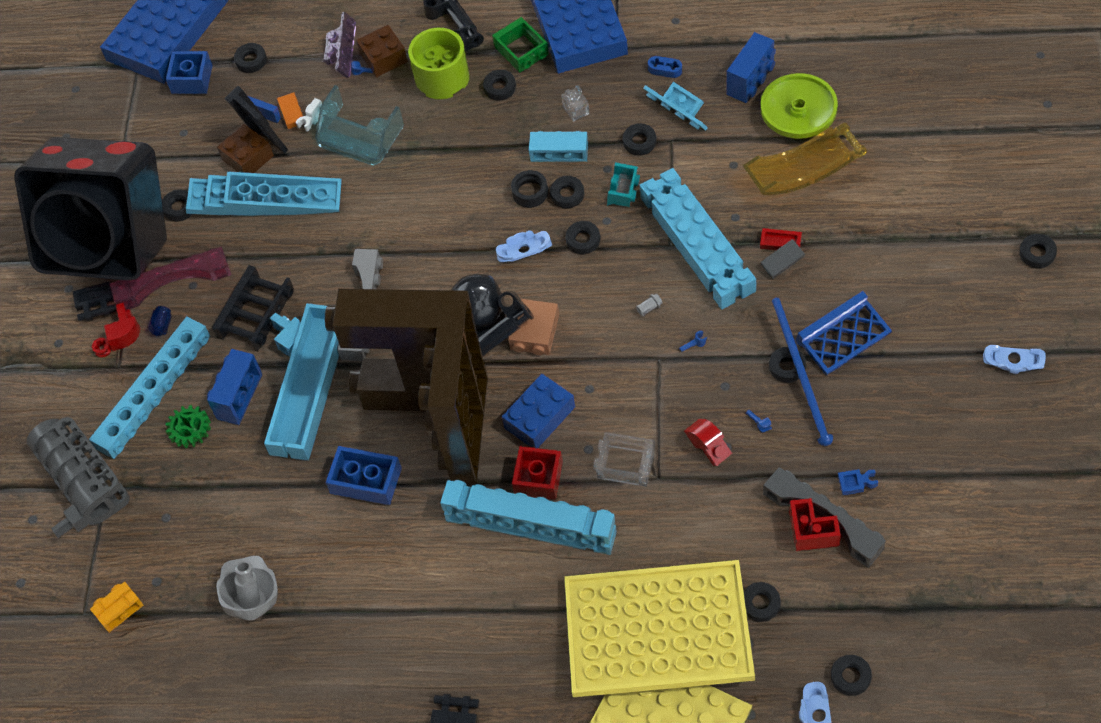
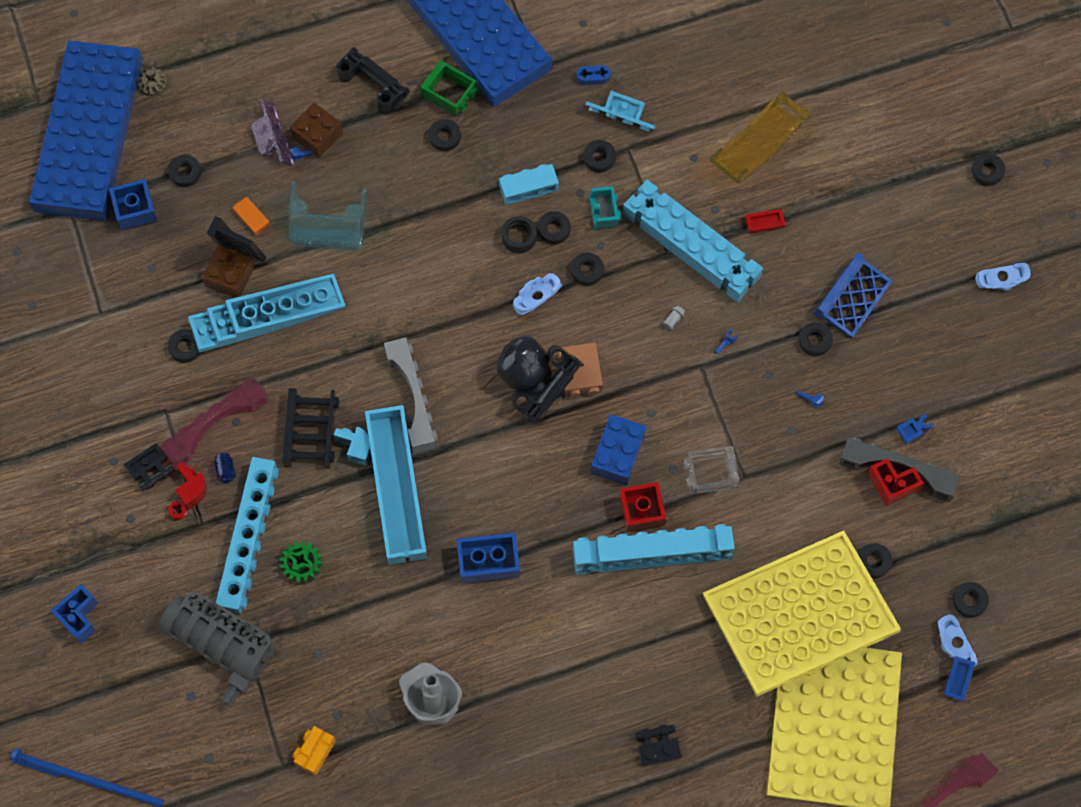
camera: 30 degrees left, 10 degrees up
(91, 208) = (124, 380): black piece -> none
(234, 386) = (330, 511): blue brick -> none
(268, 110) = (234, 223): blue tile -> none
(312, 115) = (276, 213): white plate -> none
(434, 365) = (517, 435): dark brown plate -> none
(439, 63) = (382, 117): lime brick -> none
(575, 103) = (526, 136): clear brick -> none
(709, 438) = (777, 428): red brick -> none
(750, 67) = (678, 58): blue brick -> none
(782, 259) = (774, 239): dark grey tile -> none
(799, 105) = (734, 84): lime dish -> none
(825, 439) = (874, 399): blue bar -> none

